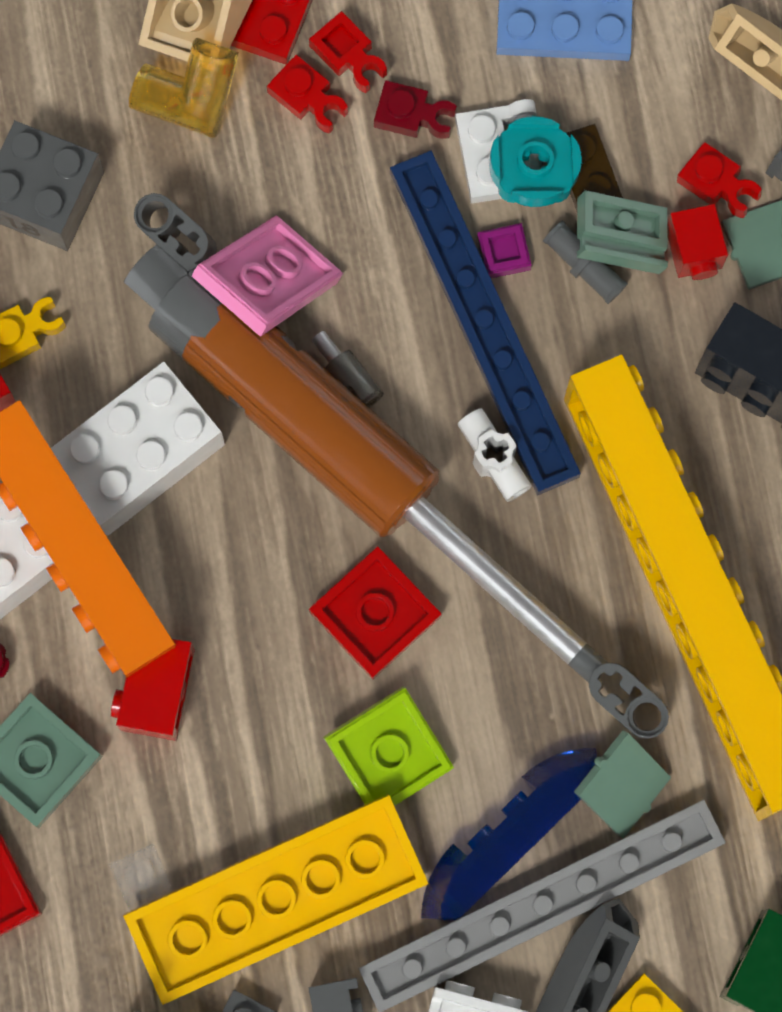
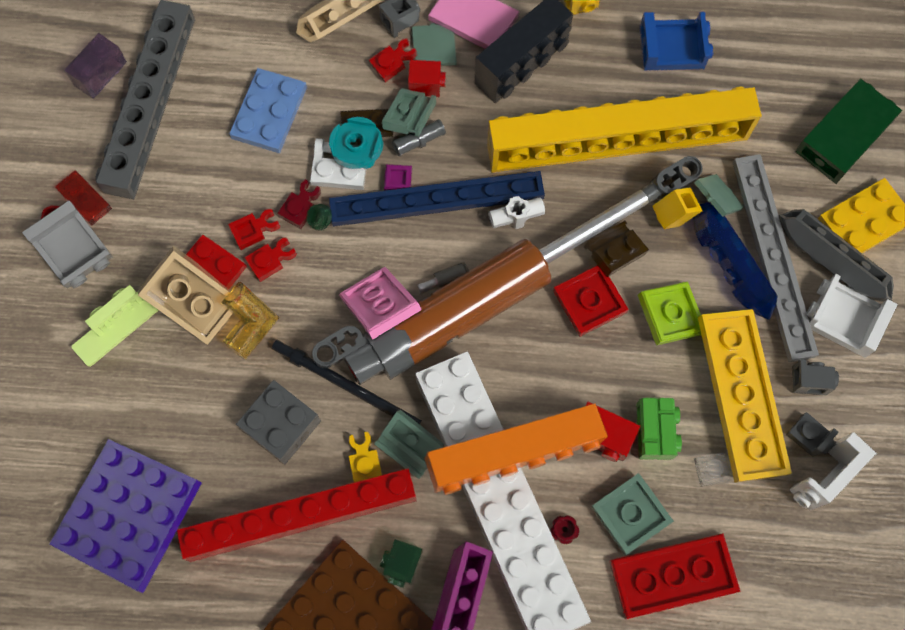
camera: 75 degrees left, 5 degrees down
(61, 386) = (408, 443): none -> sand green plate
(154, 182) = (299, 358): none -> black bar
(181, 770) = (658, 429): none -> bright green brick
(396, 145) = (319, 217): none -> clear green plate
(477, 633) = (616, 248): none -> dark brown plate
(574, 716) = (677, 208): none -> yellow brick

